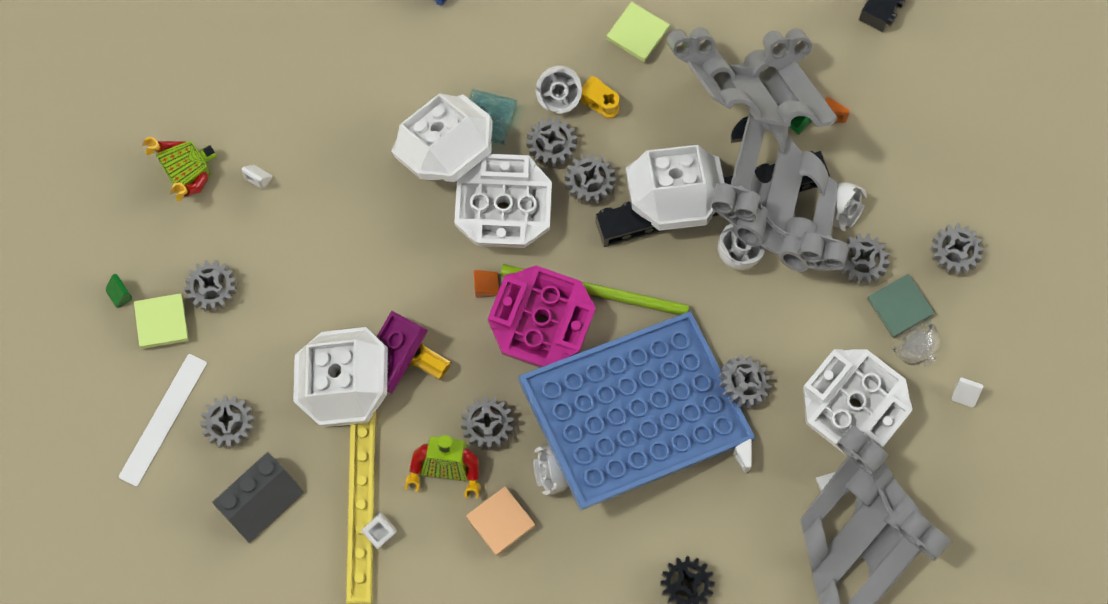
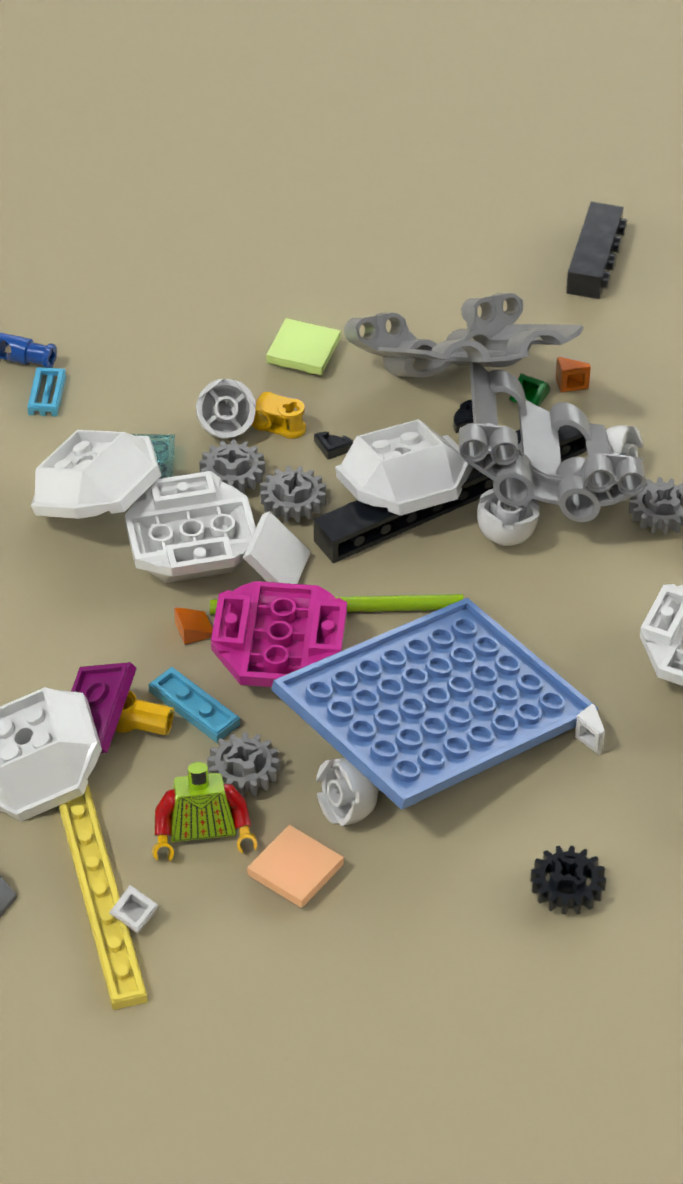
camera: 15 degrees left, 25 degrees down
(428, 44) = (45, 406): none -> medium azure tile
(468, 356) = (194, 704): none -> medium azure tile
(560, 239) = (276, 551): none -> white tile
(634, 133) = (332, 445): none -> black tile
(744, 381) = (562, 652): light grey gear -> none

